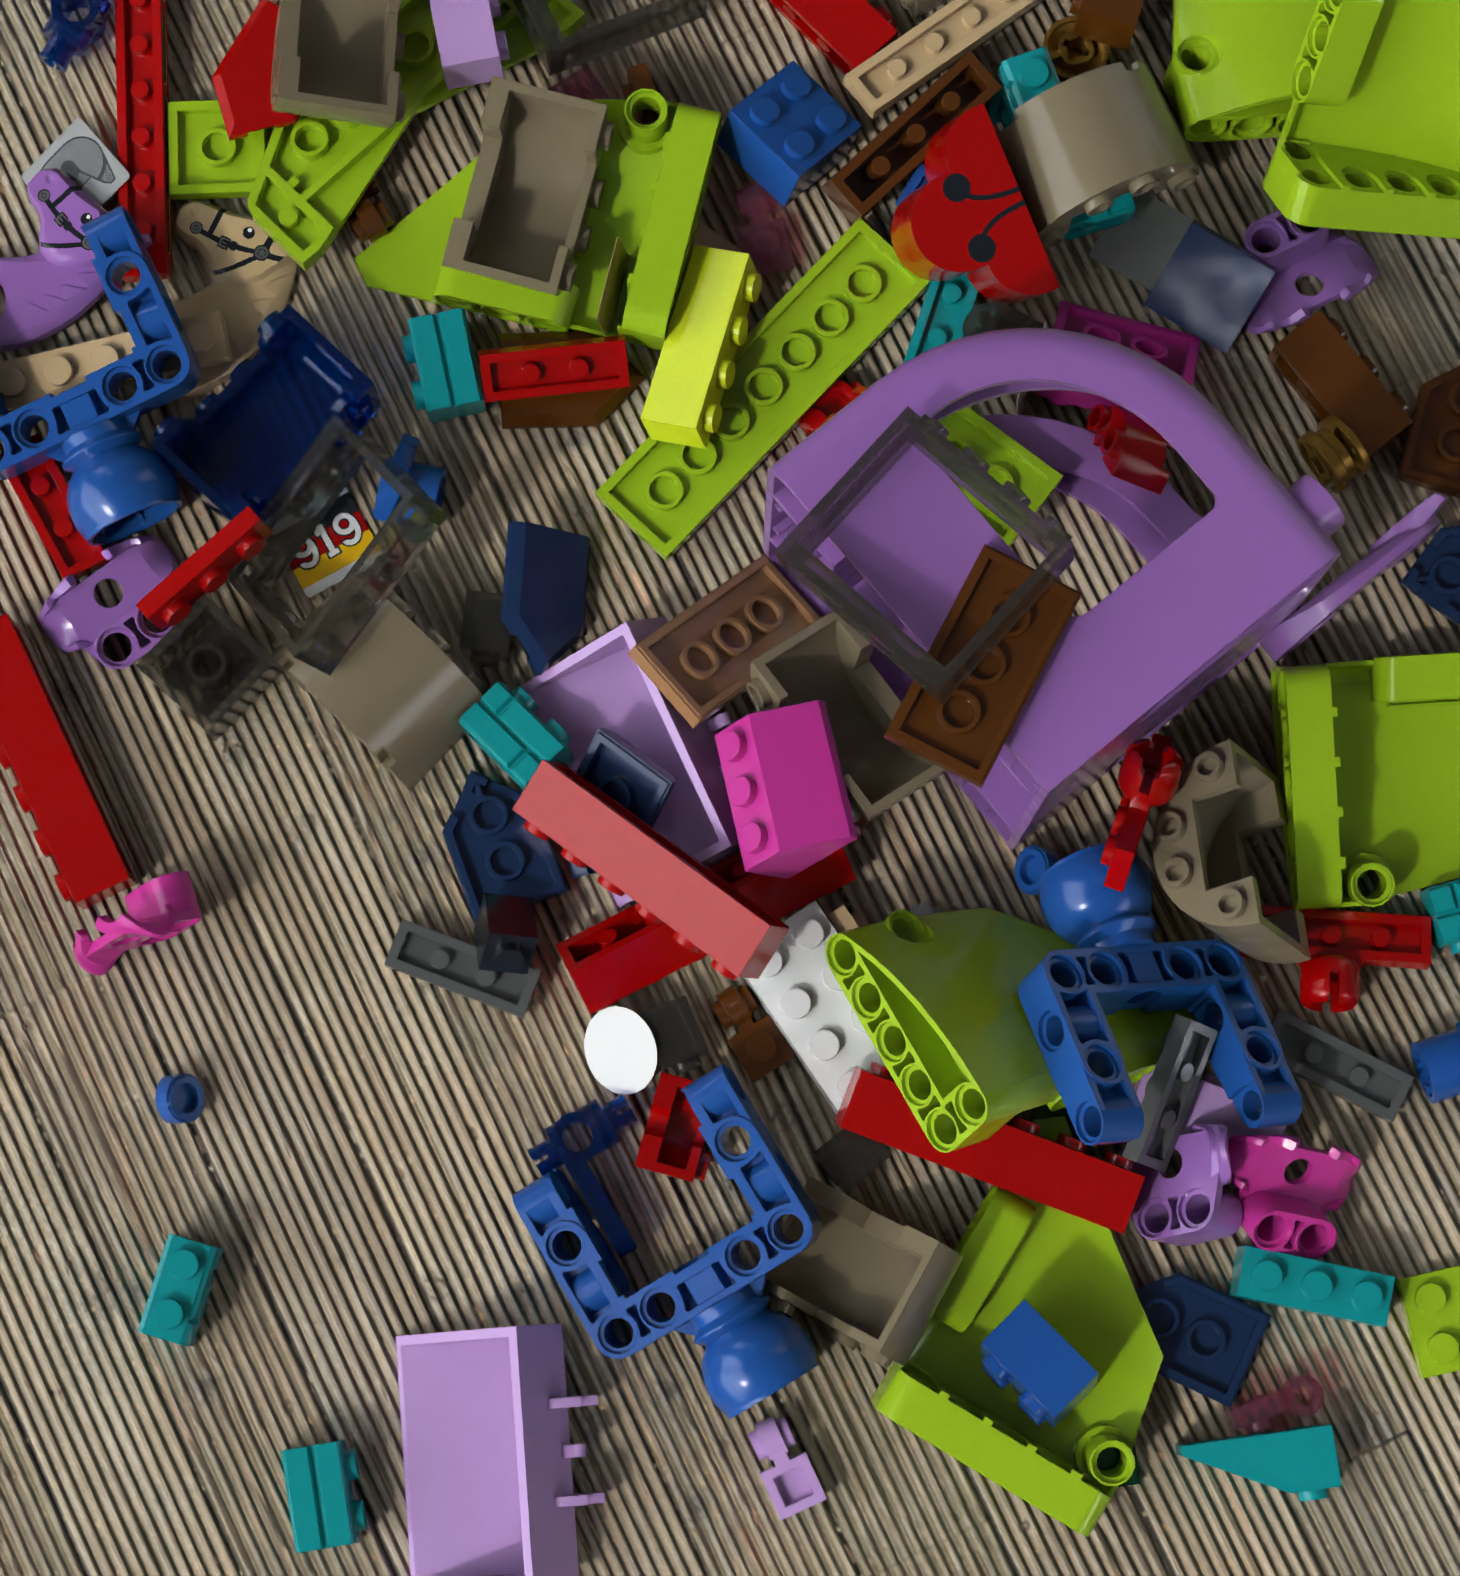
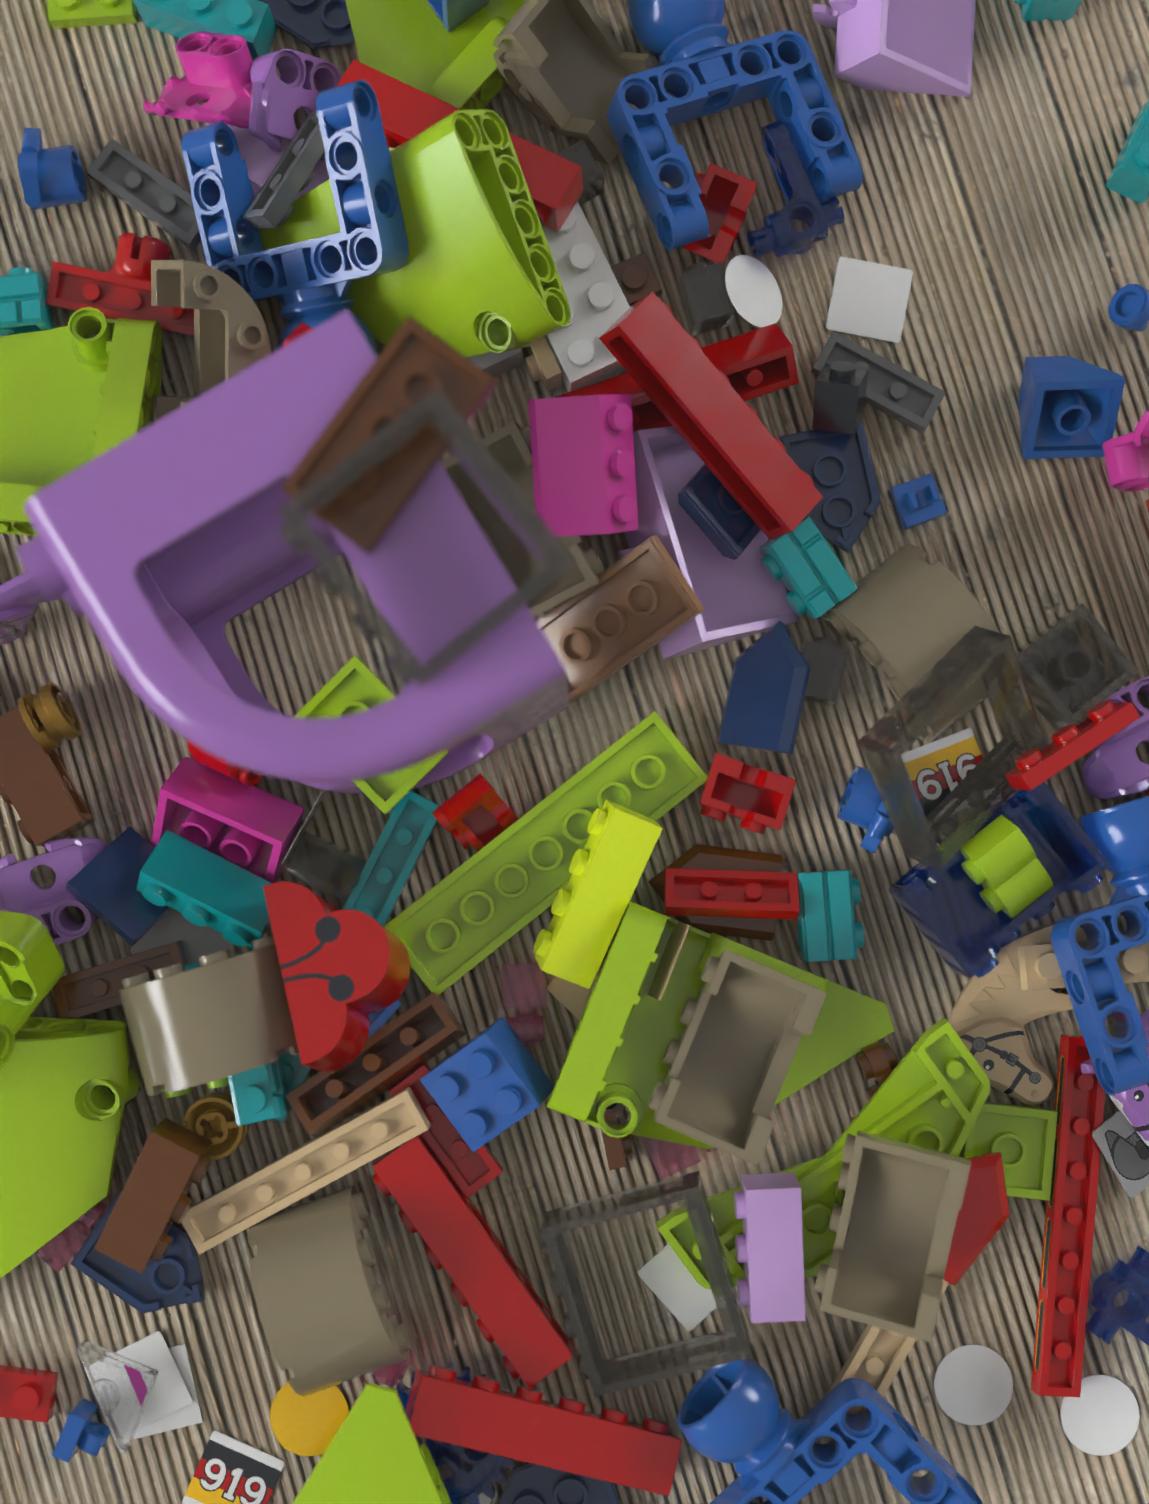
camera: 170 degrees left, 5 degrees up
(243, 967) = (1067, 407): none -> blue slope
(258, 436) = (1005, 867): none -> lime brick
(399, 841) = (917, 501): none -> blue tile
(484, 1072) = (869, 299): none -> white sticker
(552, 483) = (746, 793): none -> red cylinder
(797, 44) = (467, 1168): none -> red plate
(1123, 290) = (205, 889): none -> teal brick
(1220, 182) = (99, 985): none -> reddish brown plate

